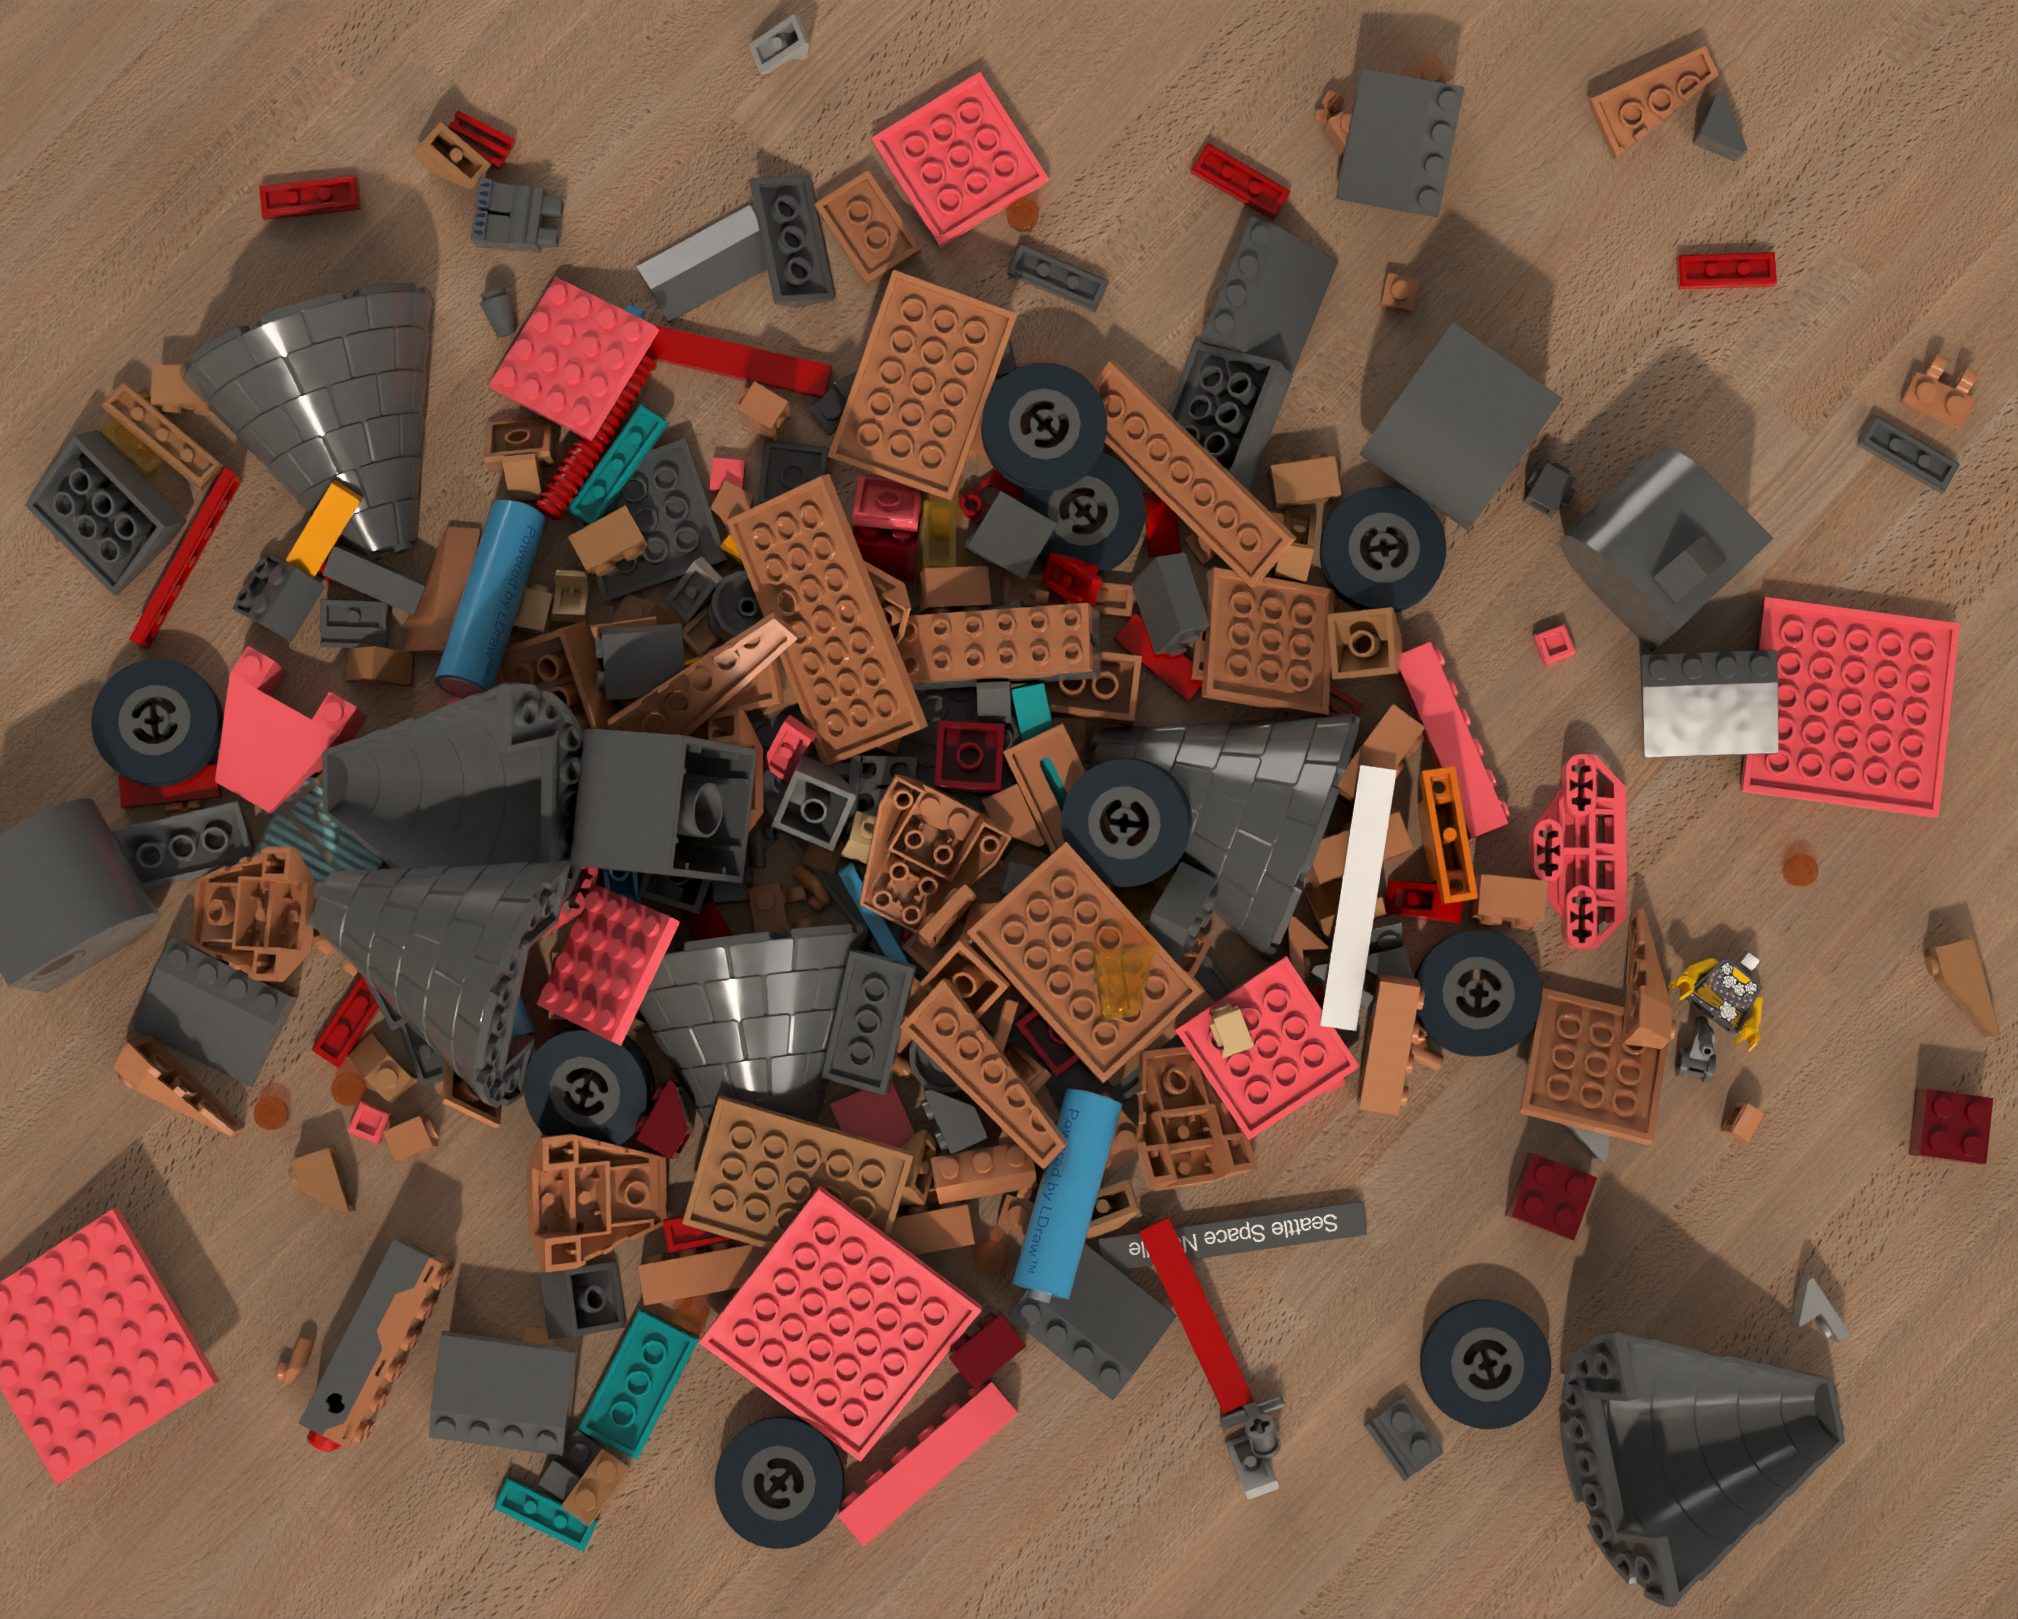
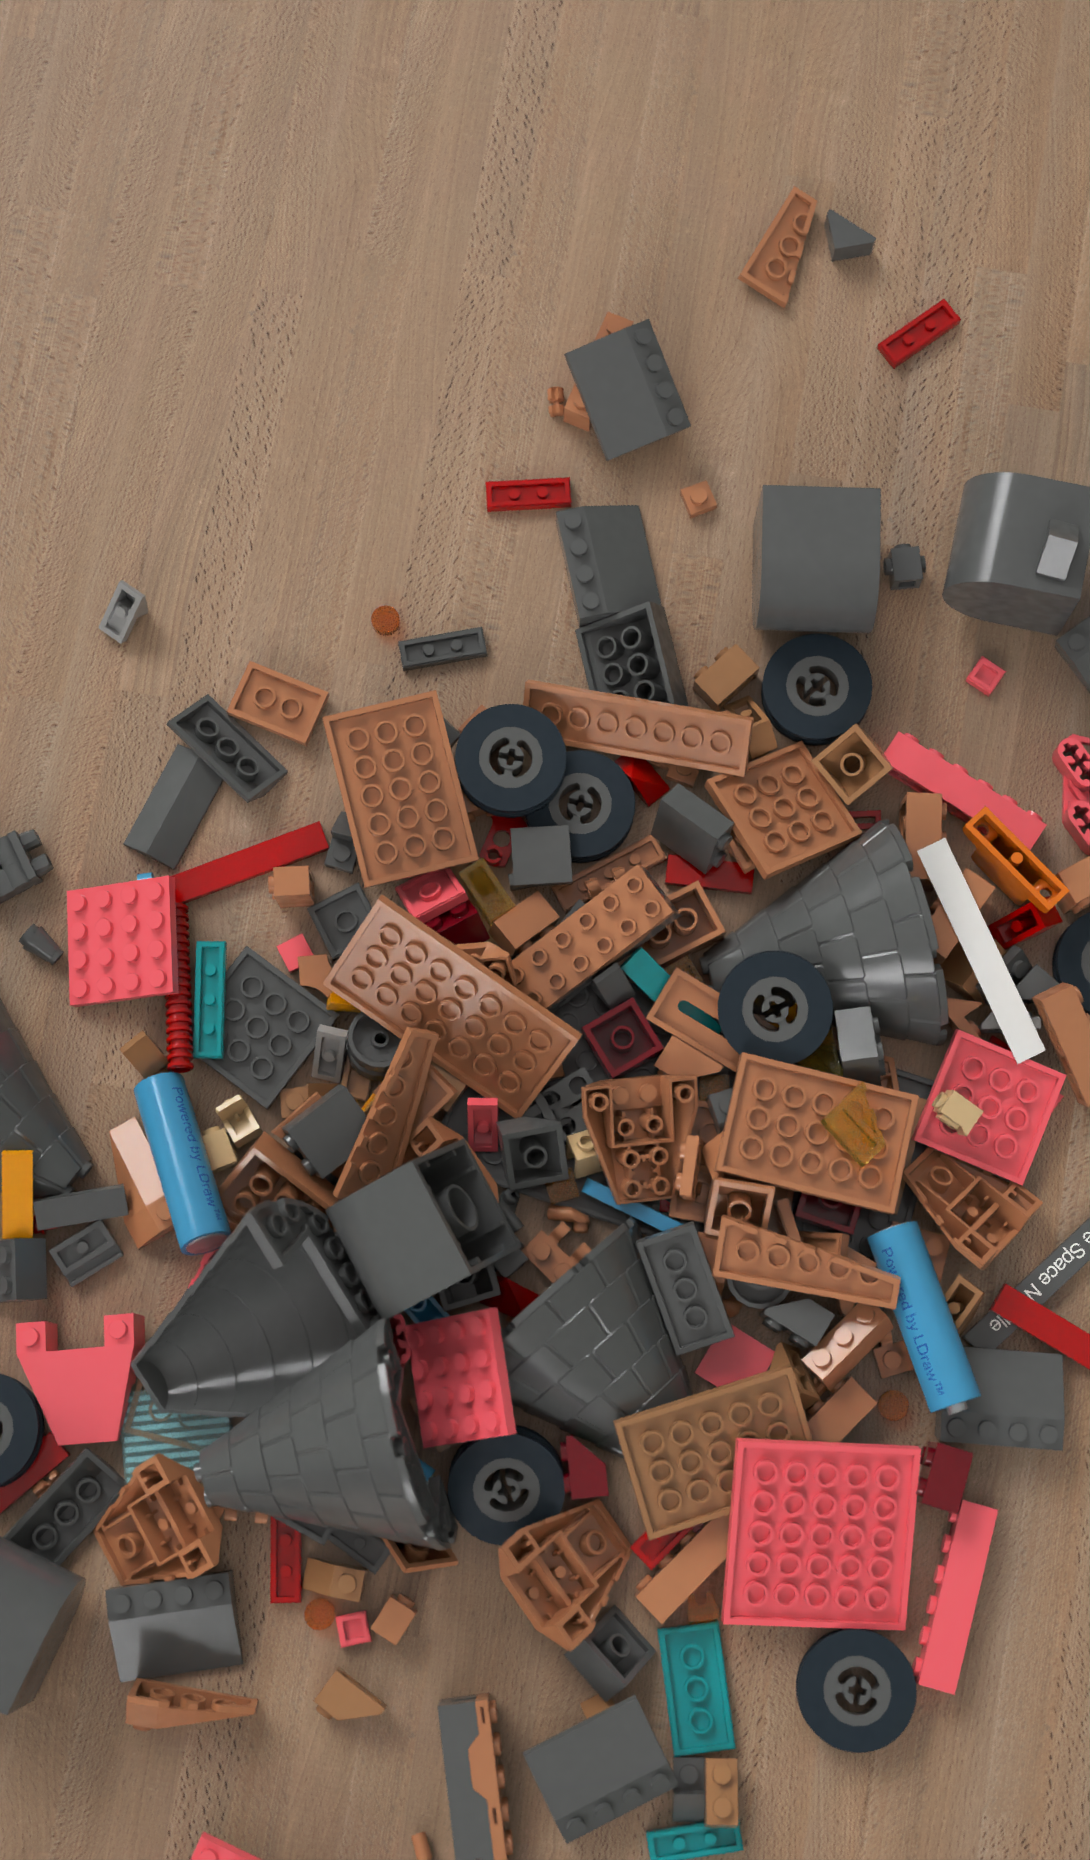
camera: 30 degrees left, 5 degrees down
(271, 1113) = (272, 1674): clear orange tile -> none
(380, 666) = (127, 1271): medium nougat slope -> none
(519, 438) = (119, 1029): medium nougat slope -> none
(608, 542) = (241, 1060): medium nougat brick -> none
(959, 159) = (312, 610): coral plate -> none
(1072, 579) = (608, 857): red slope -> none

